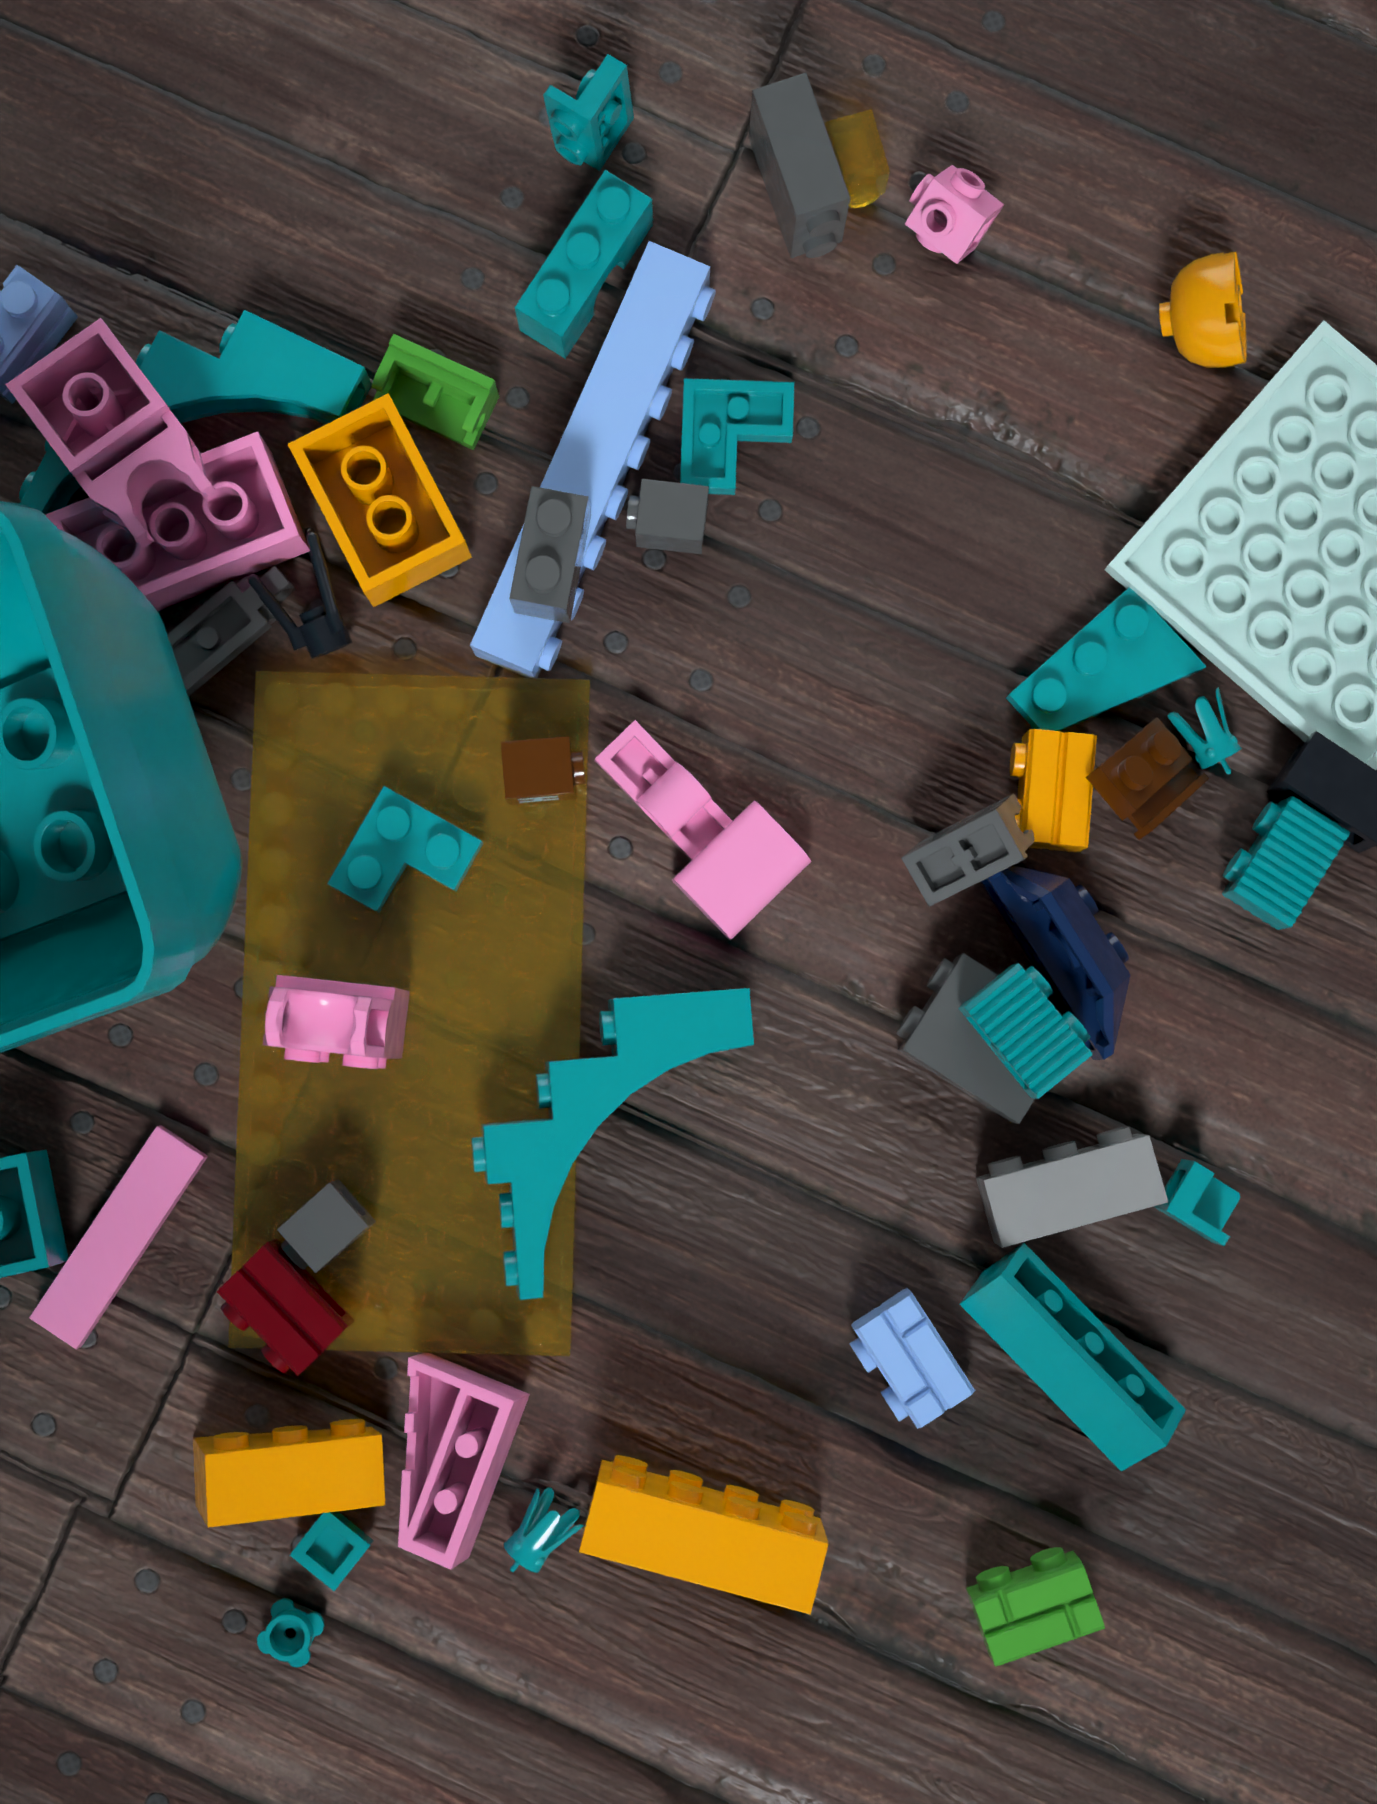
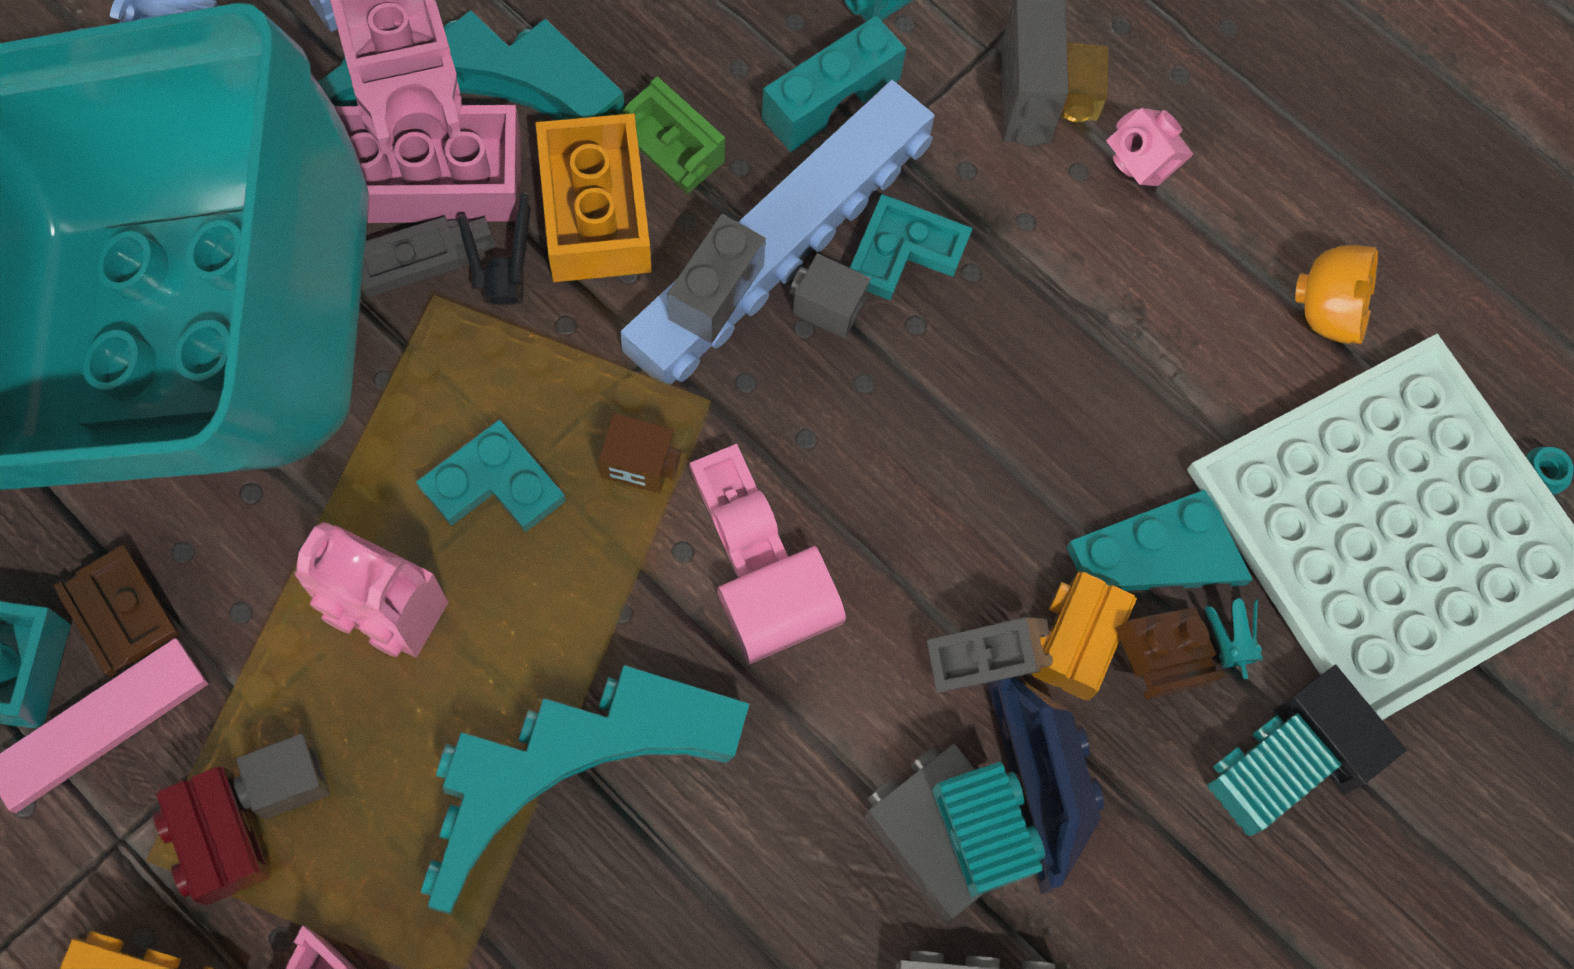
camera: 15 degrees right, 15 degrees down
(86, 1120) = (116, 610): none -> reddish brown plate

